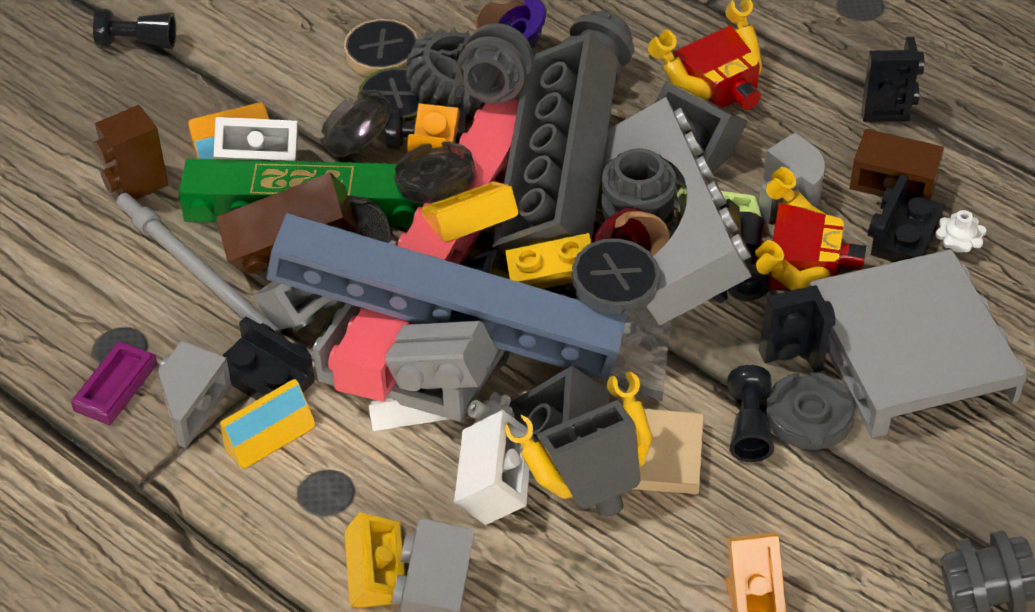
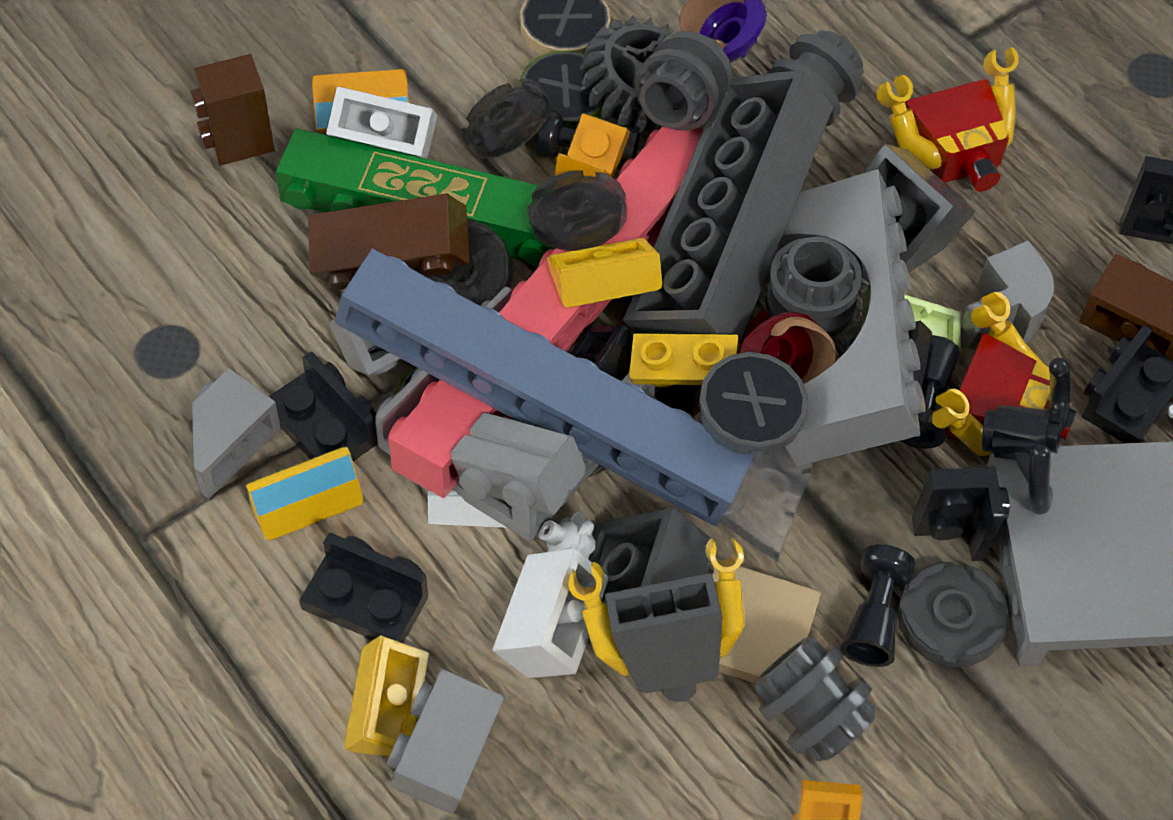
camera: 10 degrees right, 10 degrees up
(114, 383) = (147, 397): magenta tile -> none
(151, 225) = (239, 200): light grey bar -> none
(336, 483) = (366, 590): none -> black bracket
(721, 483) = (815, 699): none -> dark grey piece
(837, 261) = (1032, 435): none -> black piece

